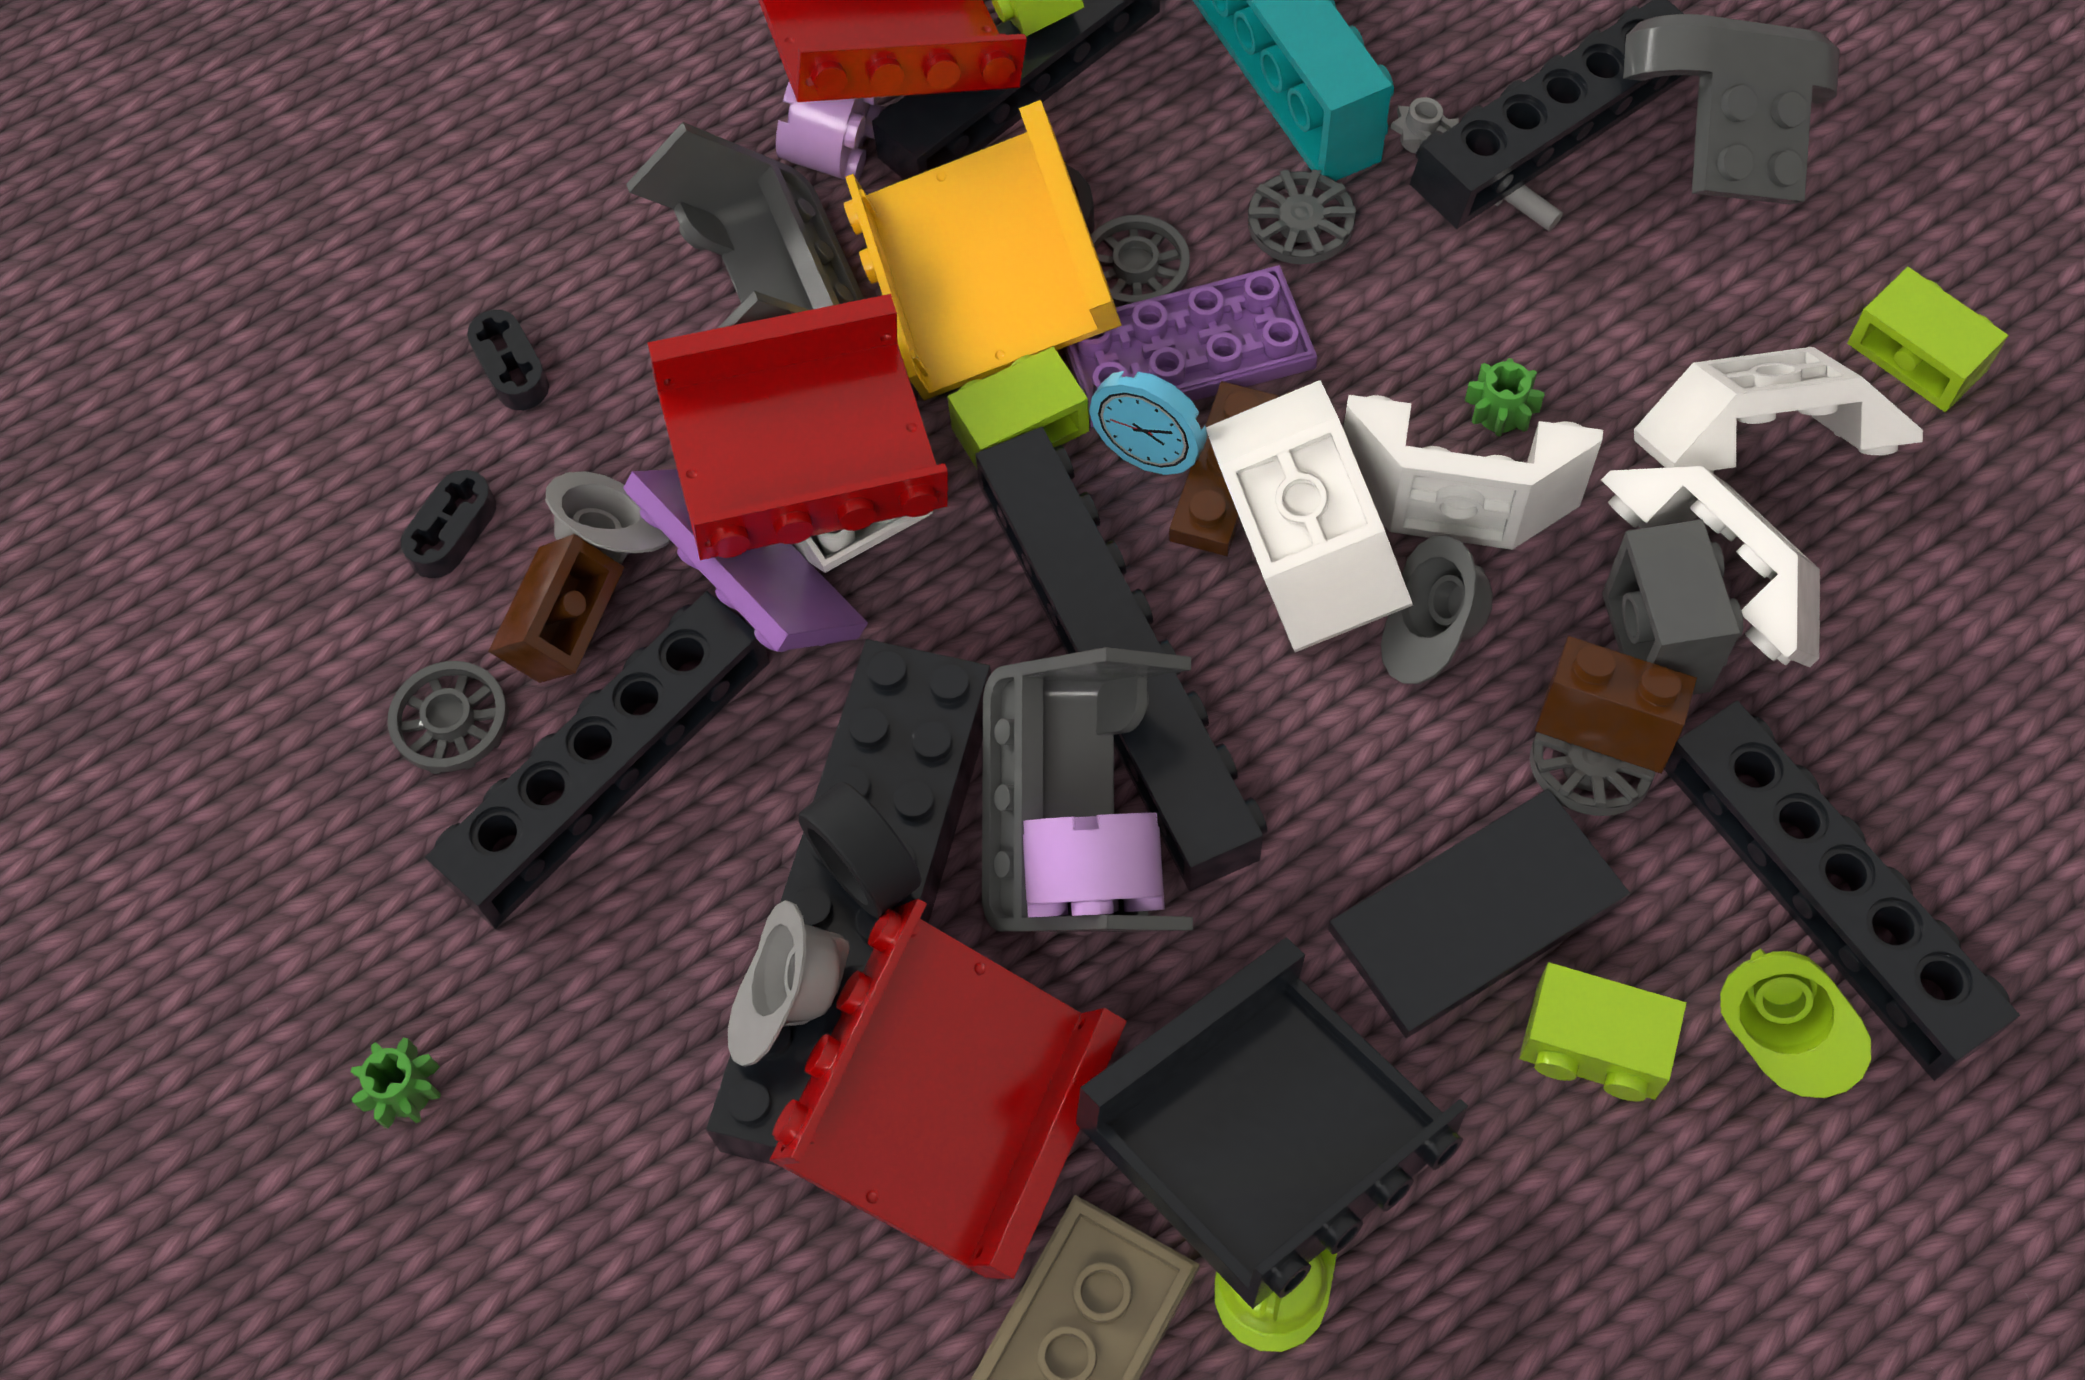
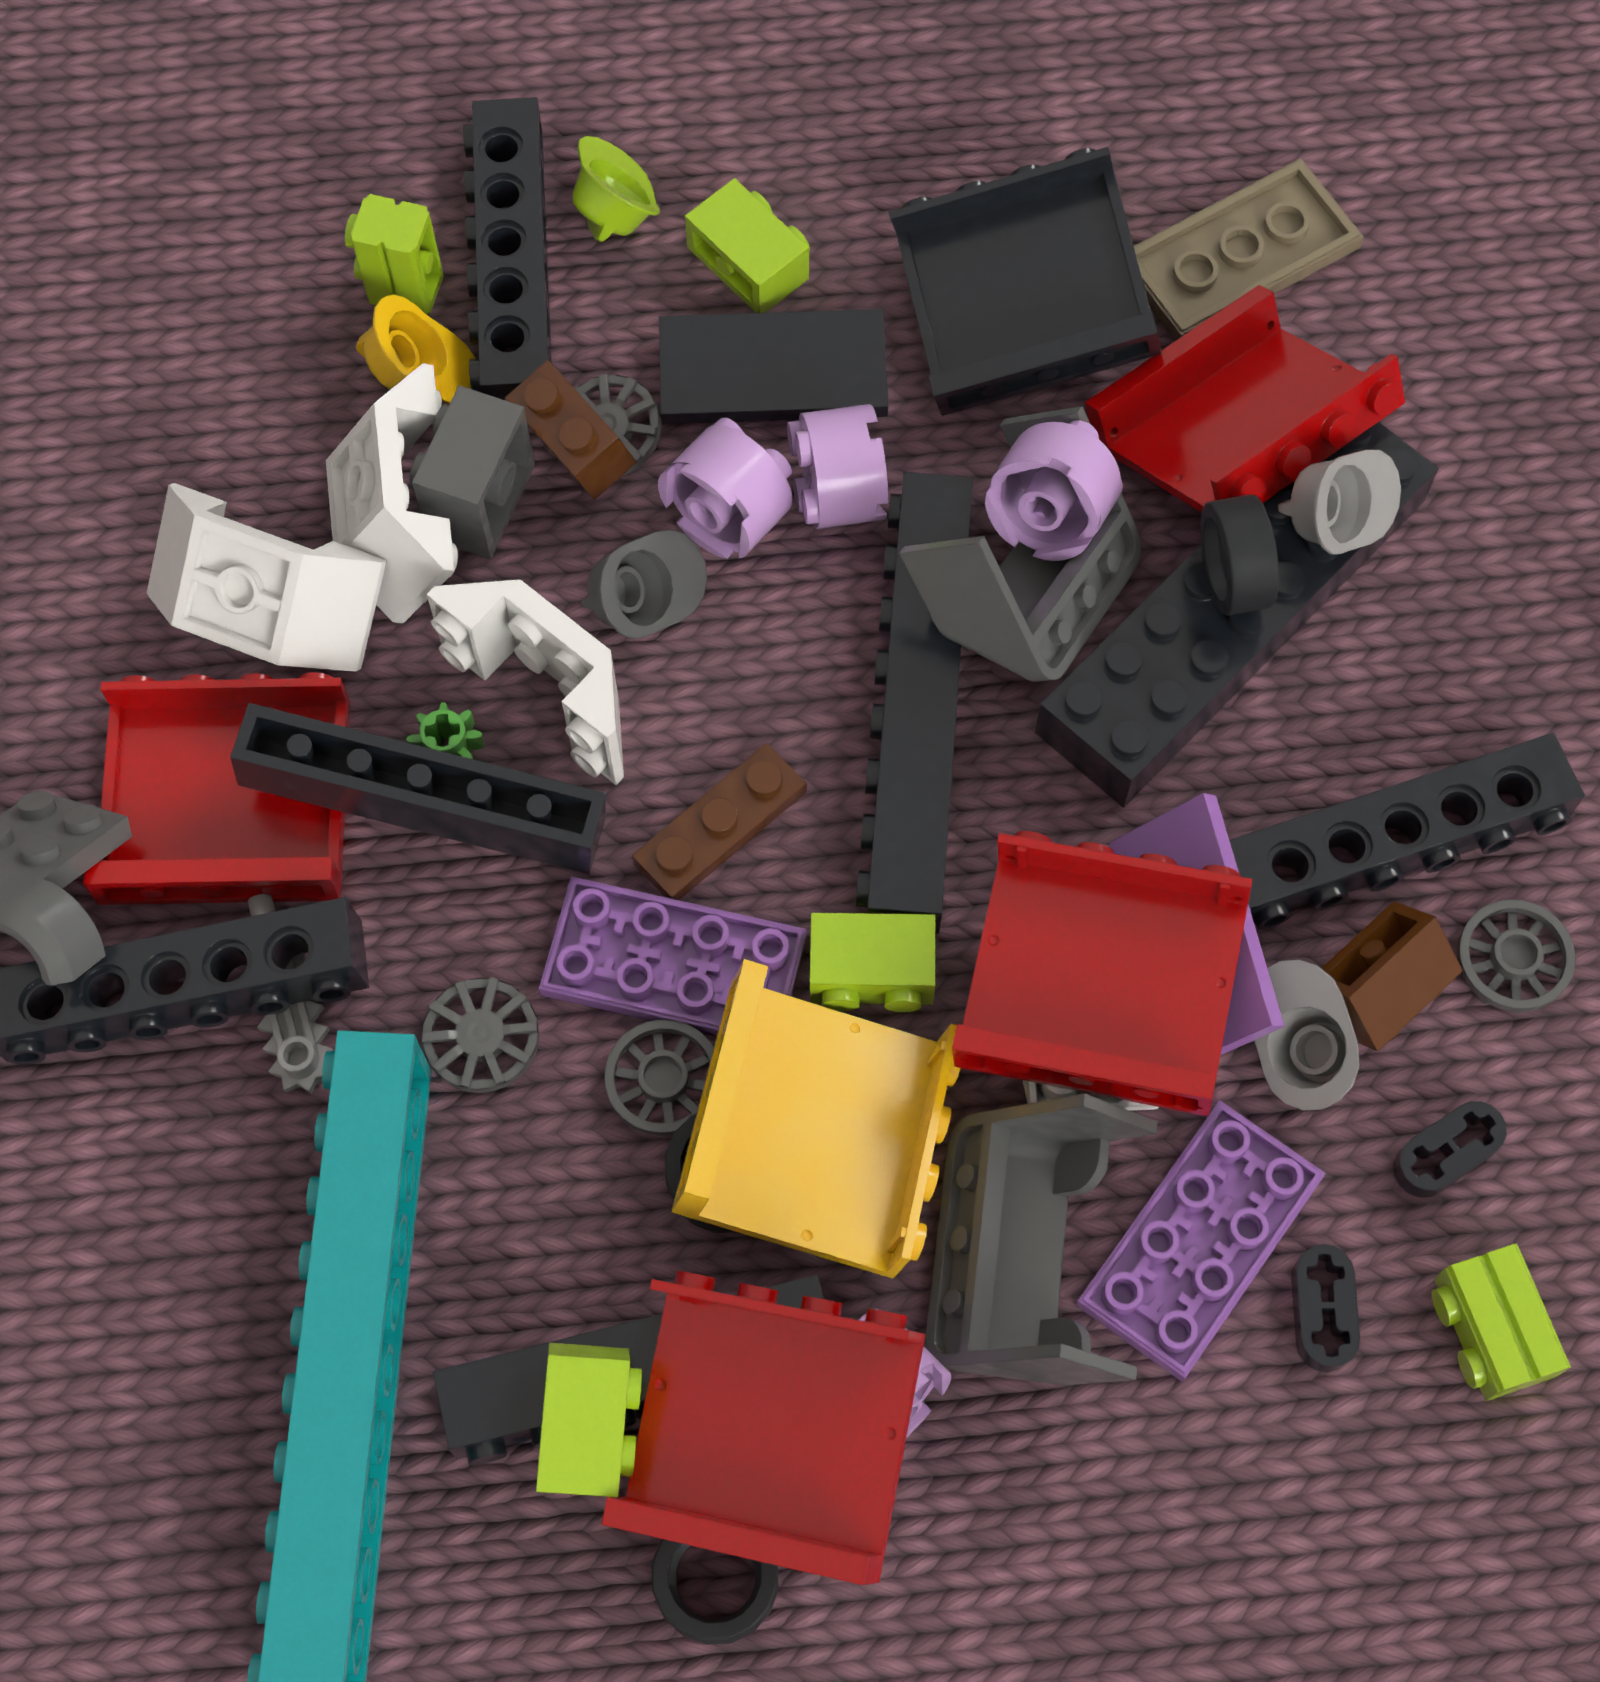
camera: 155 degrees left, 5 degrees up
(357, 405) = (1499, 1323): none -> lime brick
(610, 394) = (1200, 1240): none -> medium lavender tile
(1148, 422) = (772, 861): medium azure tile -> none
(1309, 516) = (694, 716): white slope -> none
(1331, 806) = (839, 467): none -> lavender brick
(1422, 727) = (727, 489): none -> lavender brick
(1492, 319) = (418, 788): none -> black brick
(1649, 274) = (188, 818): none -> red panel
(1829, 711) = (405, 339): none -> yellow piece
(1927, 339) = (62, 602): lime brick -> none
(1936, 788) = (395, 251): none -> lime brick

